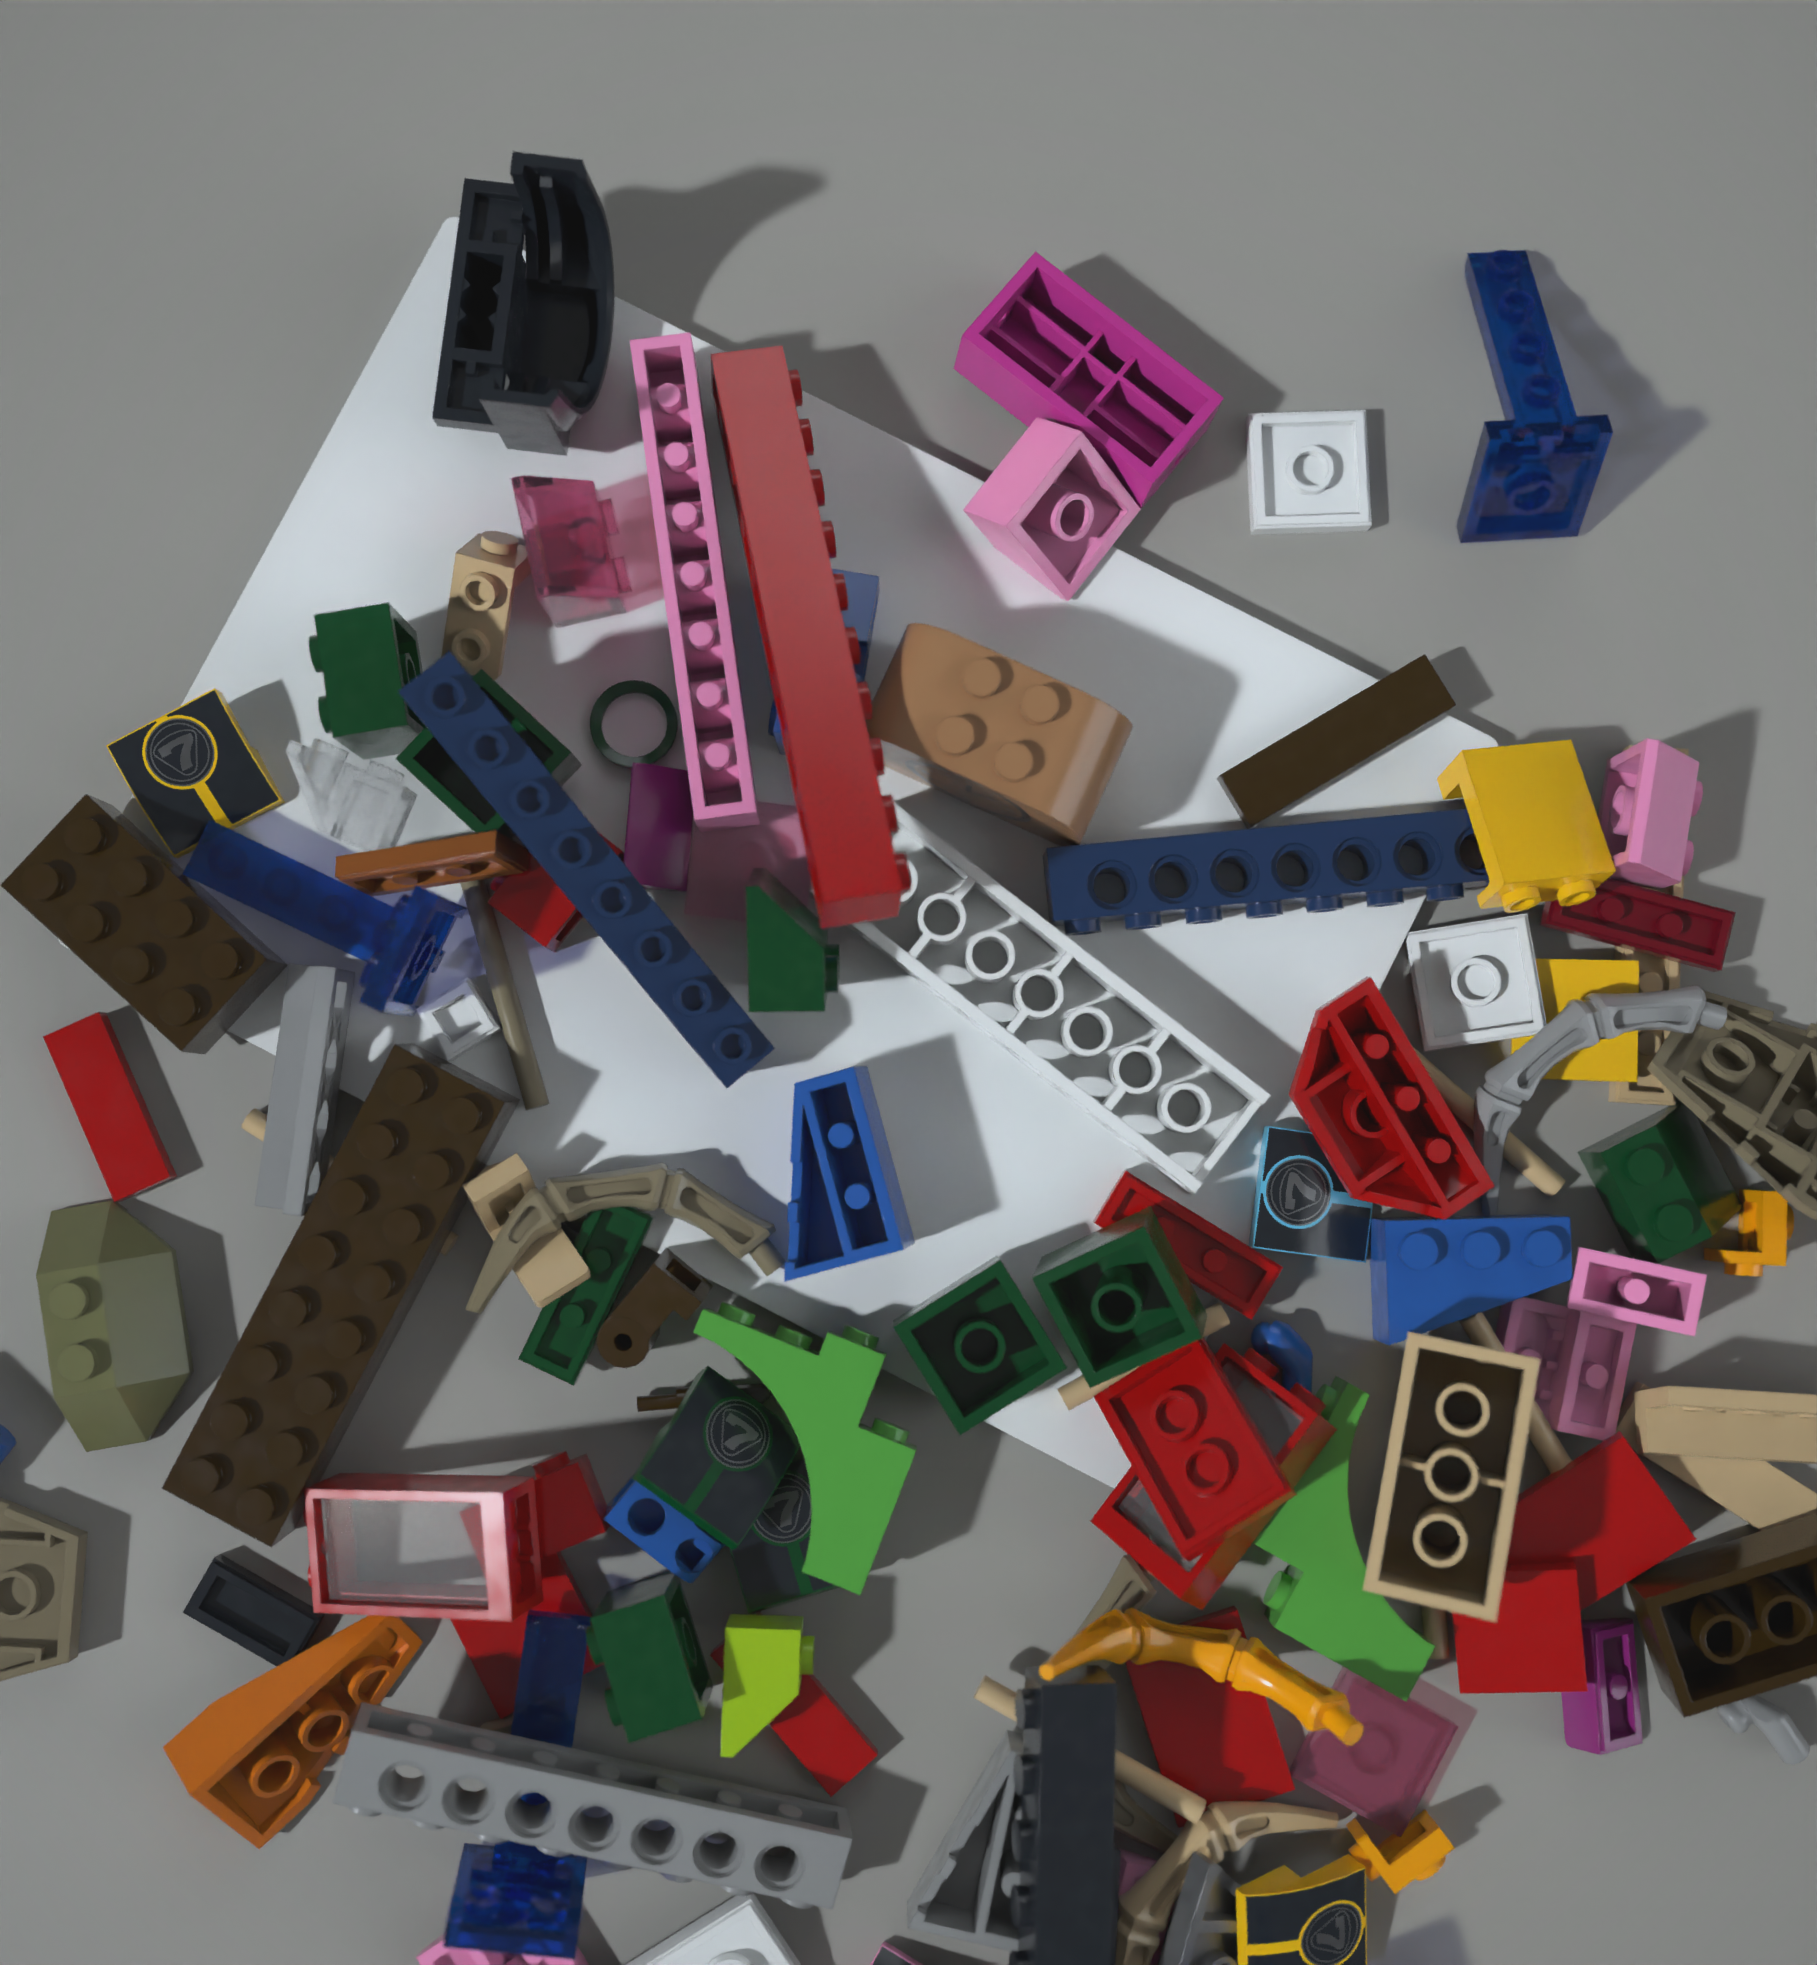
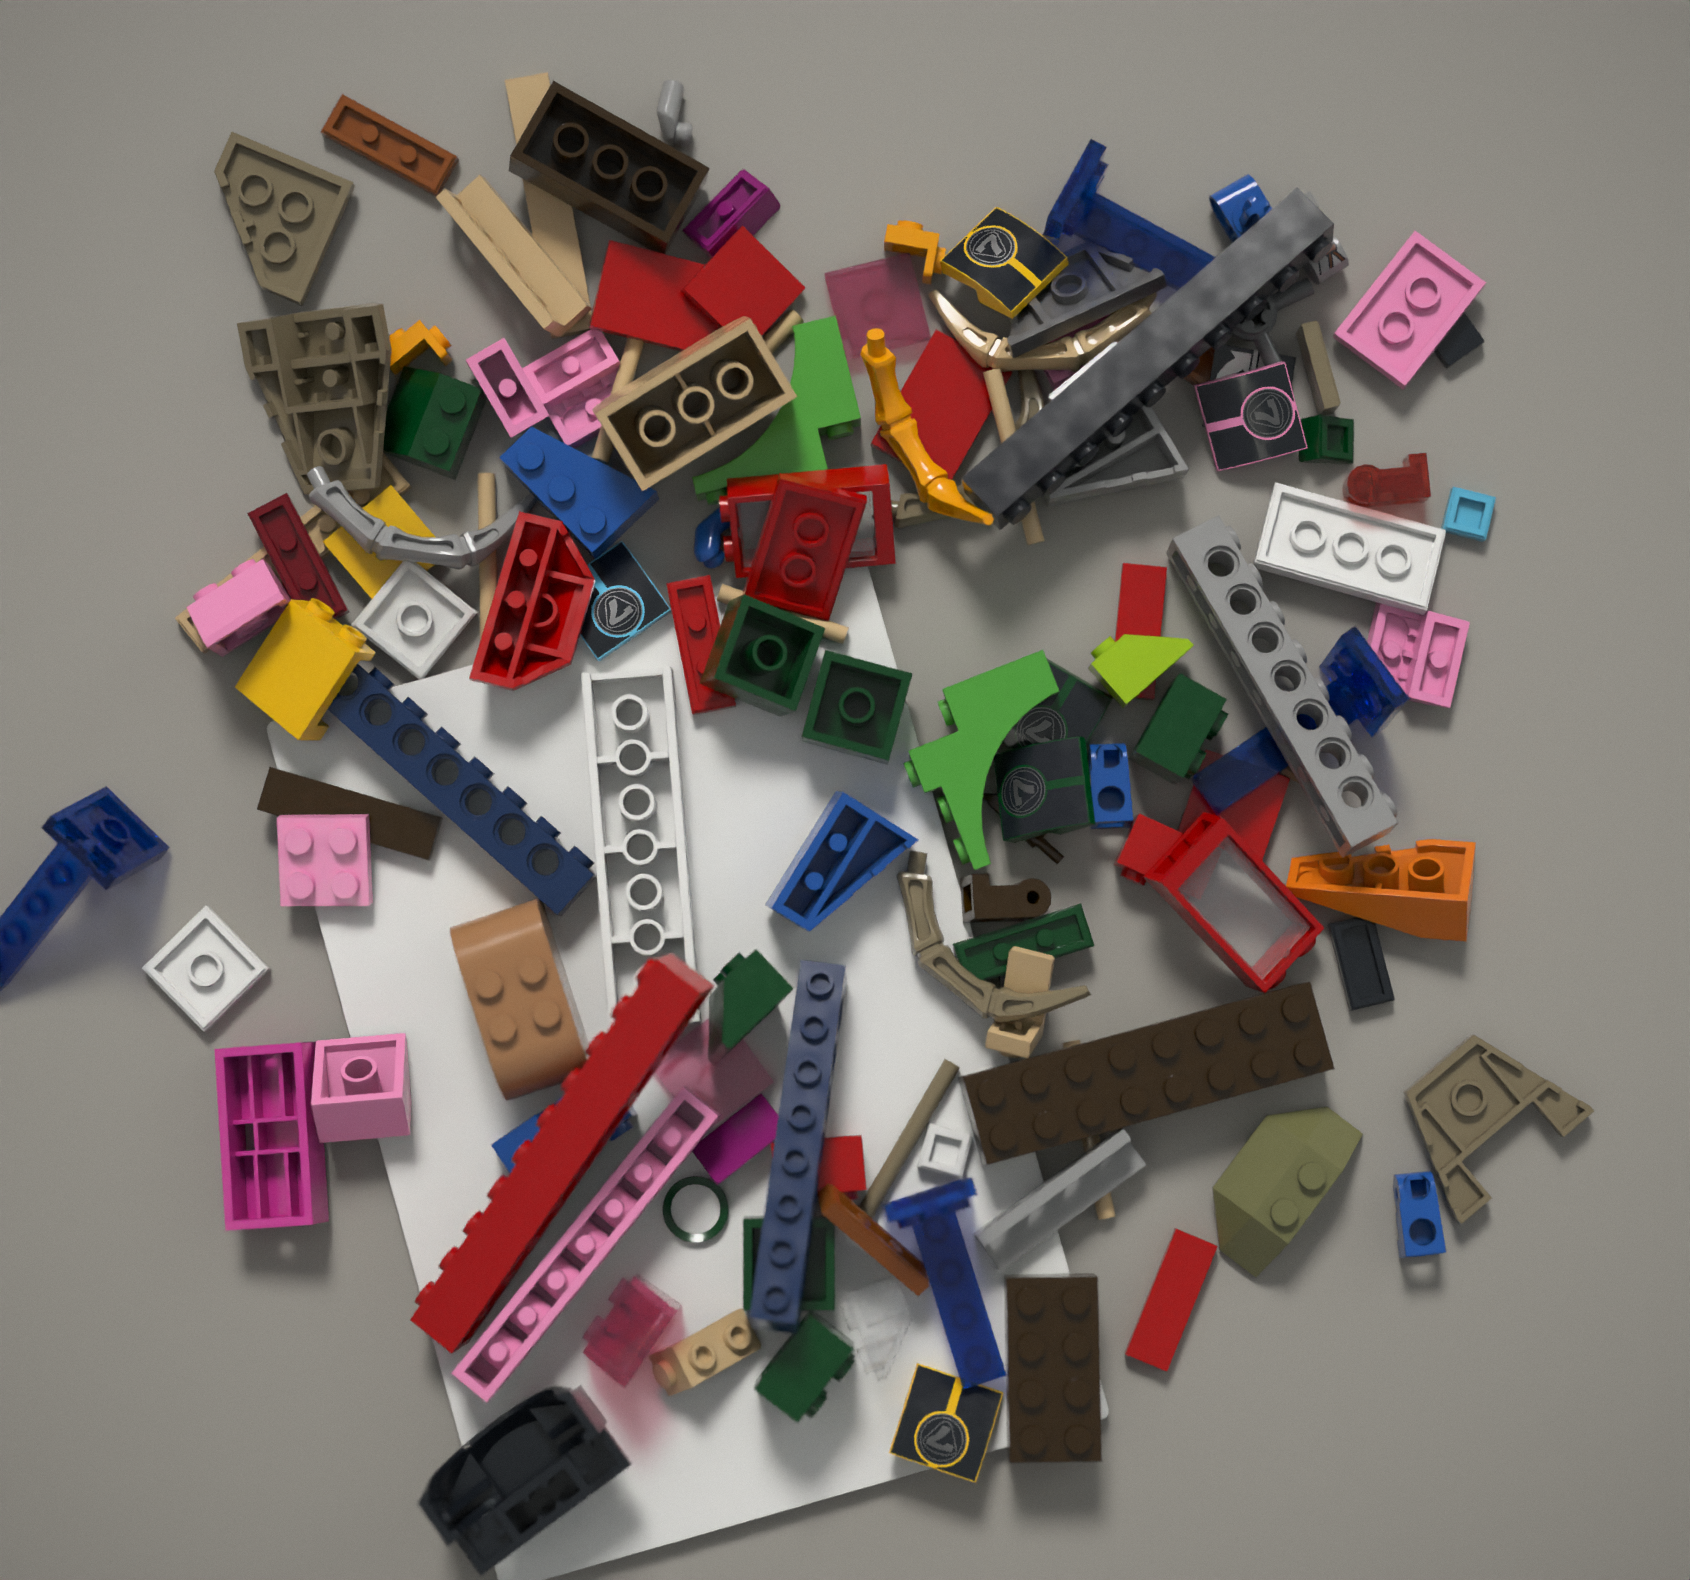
camera: 130 degrees left, 0 degrees up
(1312, 674) = (324, 860): none -> bright pink plate

